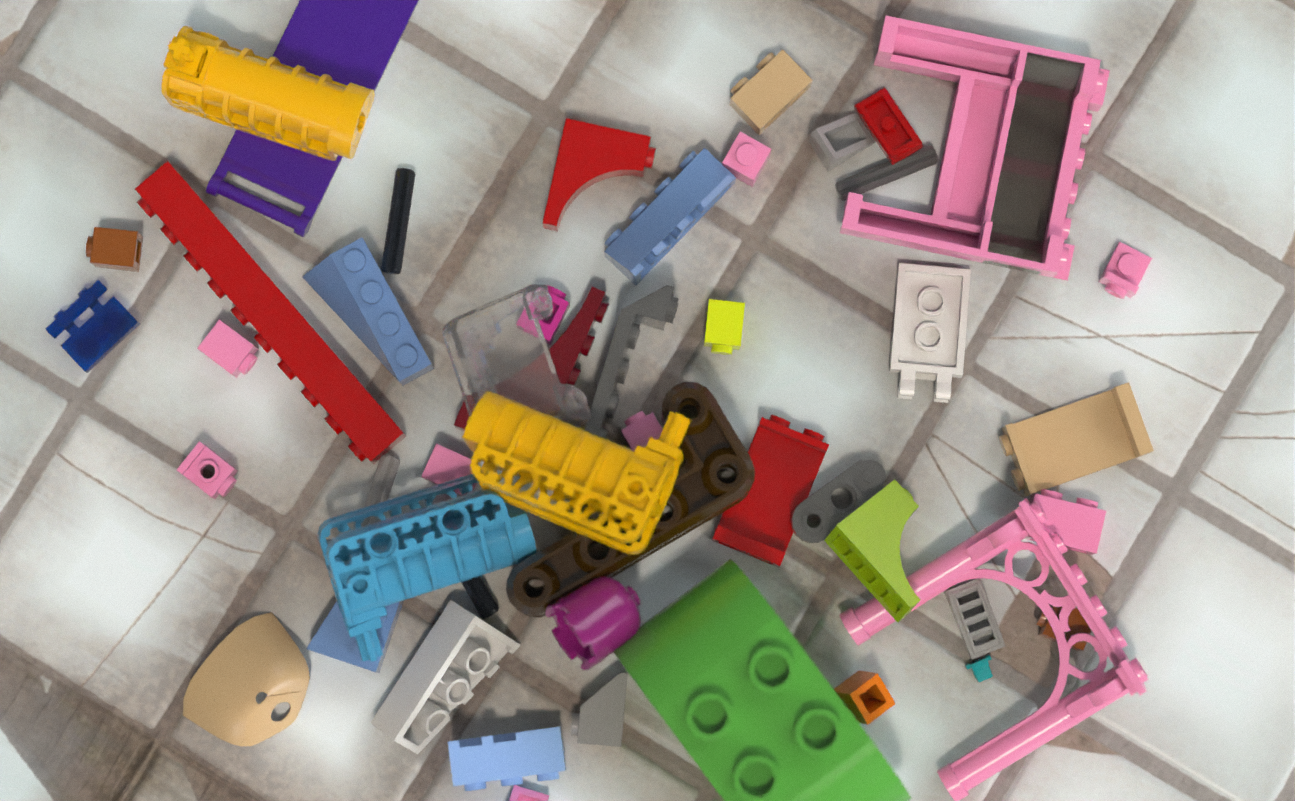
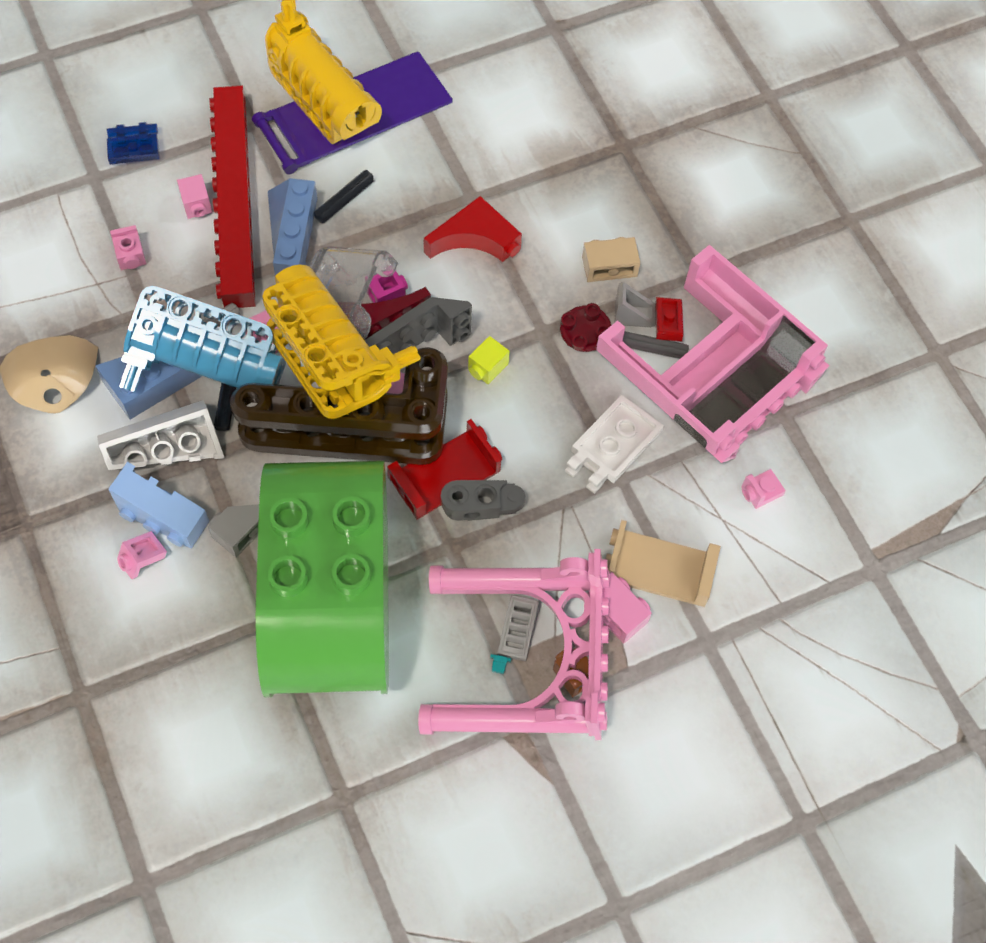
camera: 30 degrees right, 20 degrees down
(115, 249) = (179, 114): dark orange brick -> none
(595, 620) = (272, 439): magenta cylinder -> none
(669, 216) = (503, 284): medium blue wedge -> none
(746, 158) = (569, 282): bright pink brick -> none
(802, 203) = (583, 326): none -> dark red dish
(865, 696) = (408, 622): orange brick -> none
(871, 547) = (484, 526): lime arch -> none

